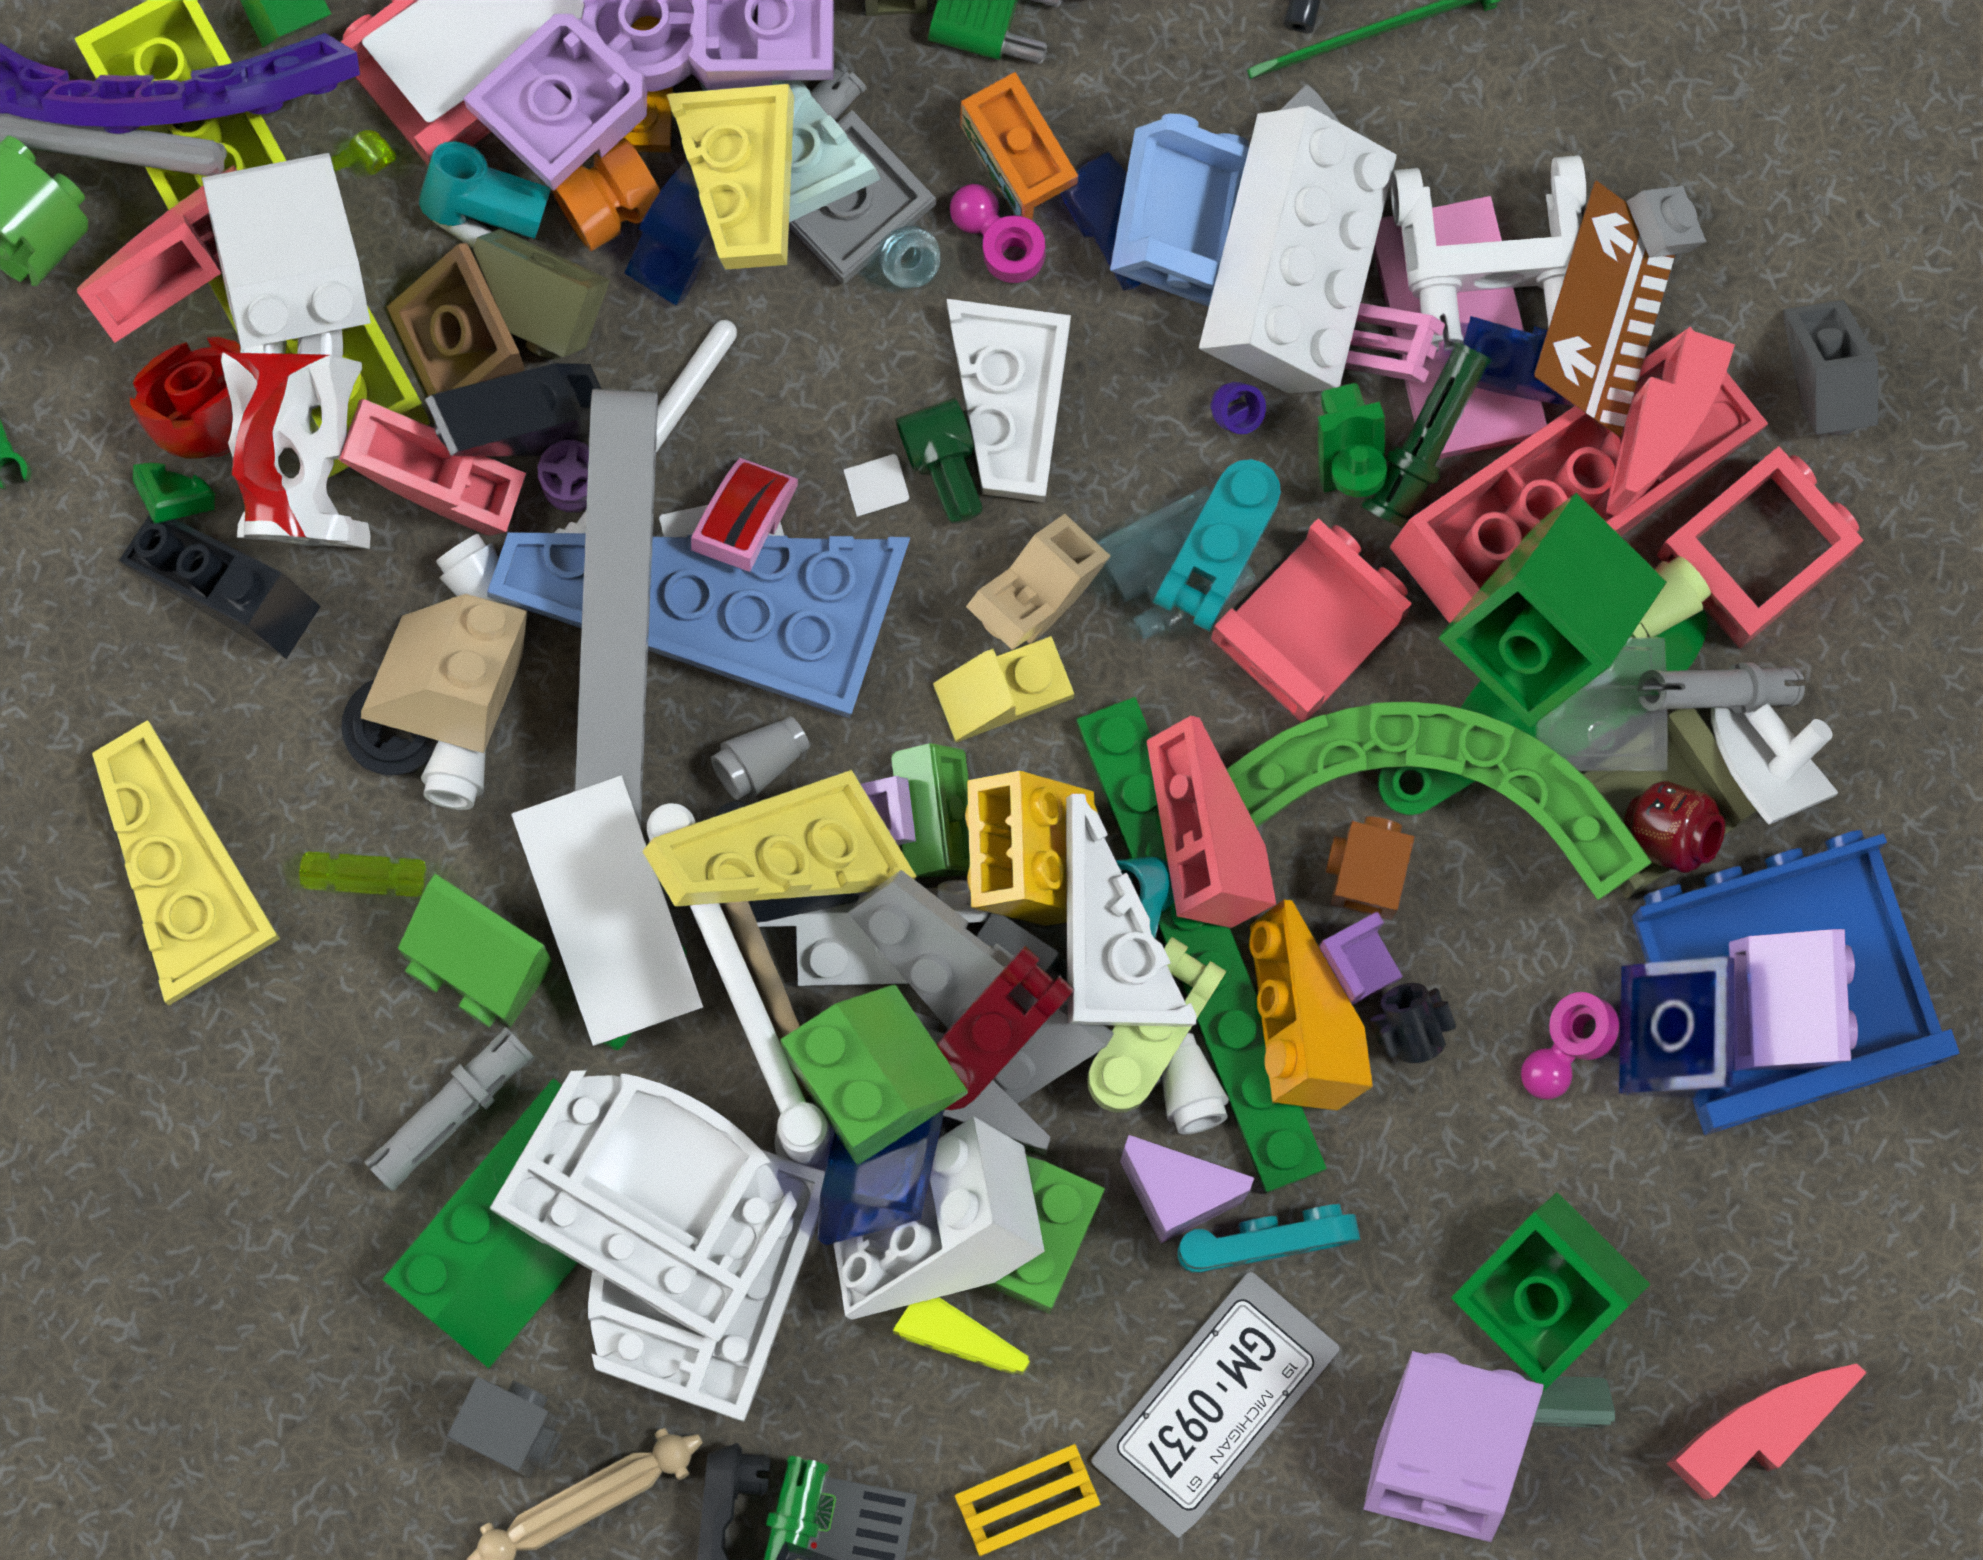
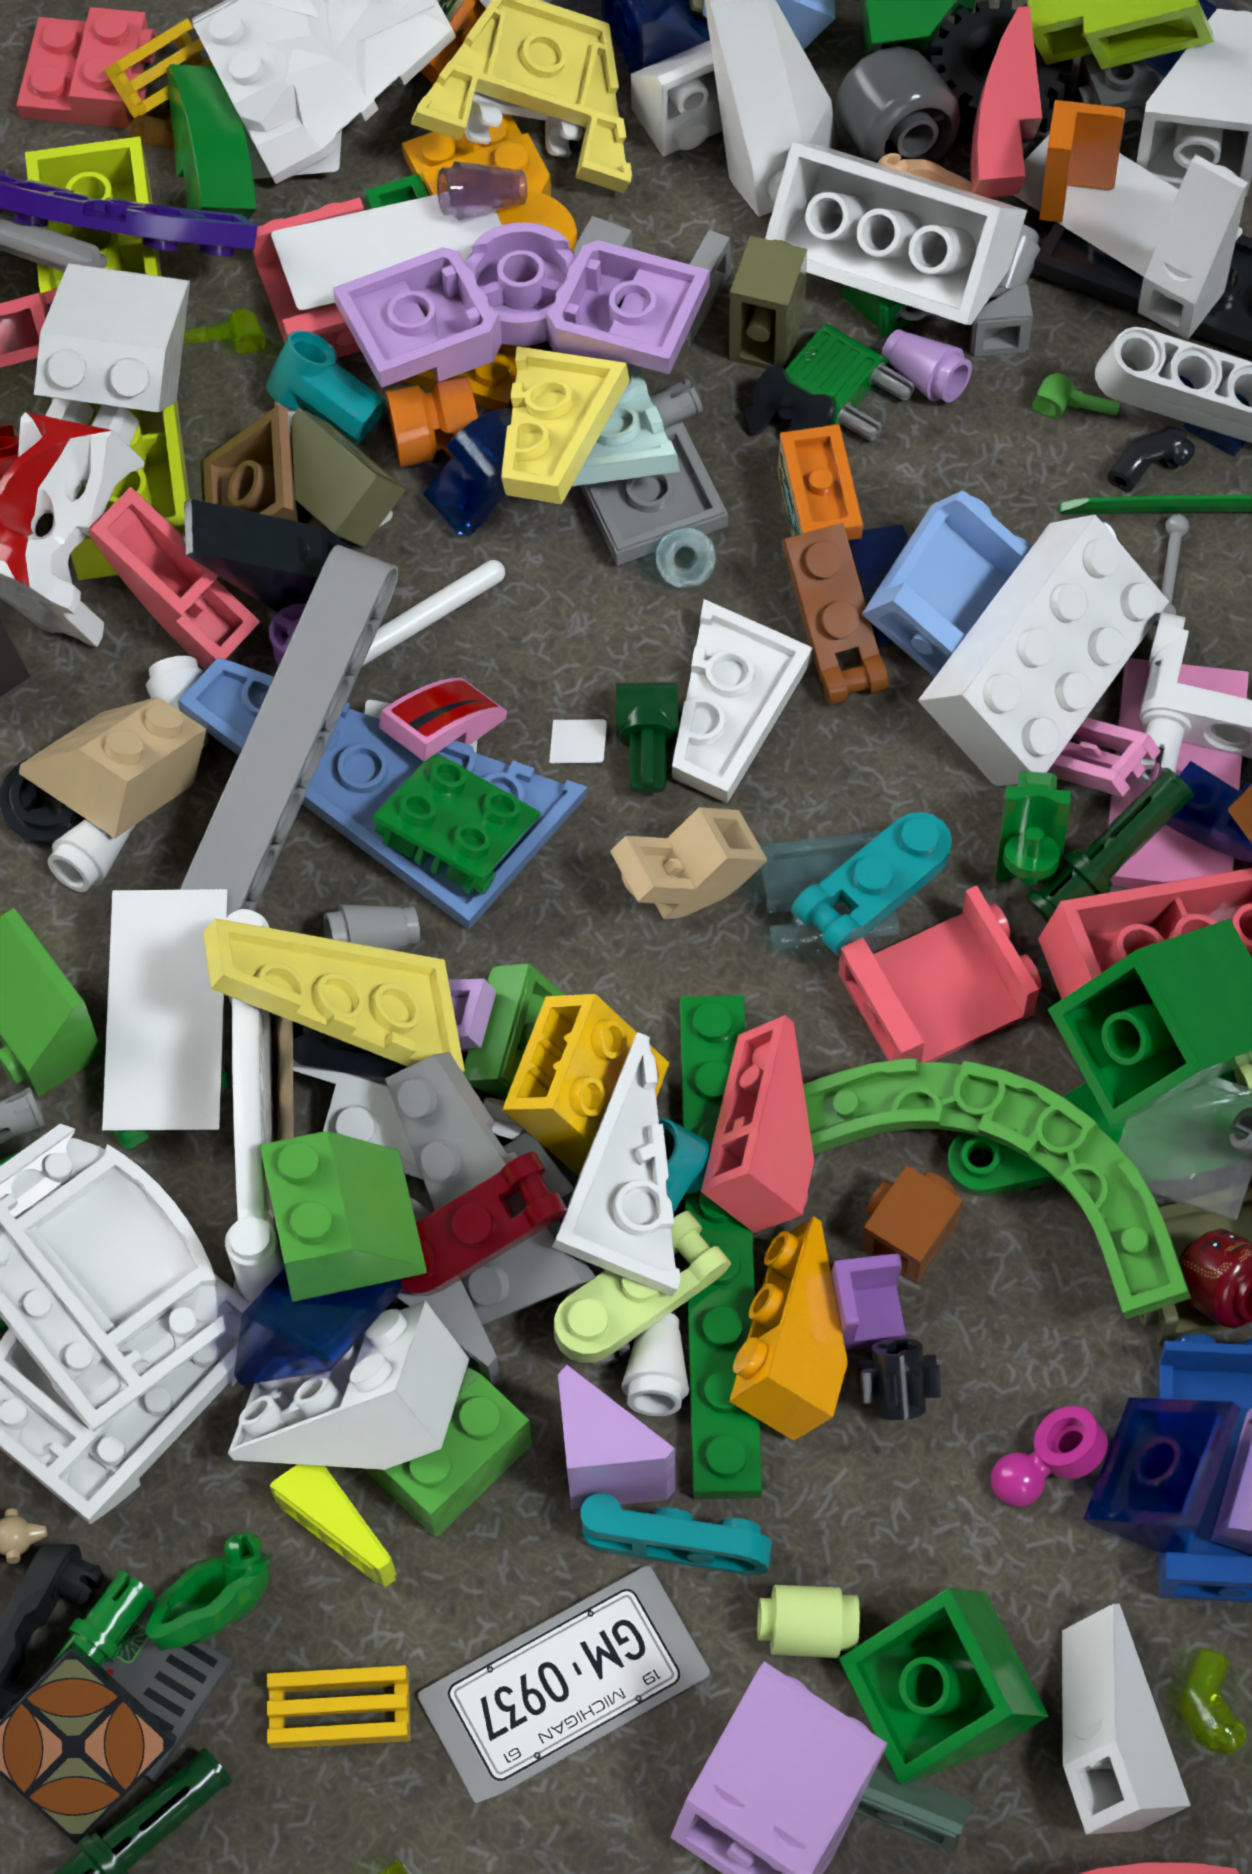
camera: 25 degrees right, 15 degrees down
(805, 622) = (456, 819): none -> green hinge
(876, 1445) = (211, 1595): none -> green arm
(953, 51) = (777, 394): none -> black piece
(976, 211) = (761, 542): dark pink plate -> none
(1002, 688) = (616, 950): light yellow slope -> none
(1079, 272) = (832, 612): none -> dark orange plate
(1240, 417) = (941, 788): dark purple hinge -> none
(1369, 57) = (1176, 527): none -> light grey hinge
(1412, 1273) = (808, 1621): none -> yellowish green brick
(1708, 1275) = (1112, 1730): none -> white slope
(1779, 1224) = (1204, 1707): none -> clear neon green arm

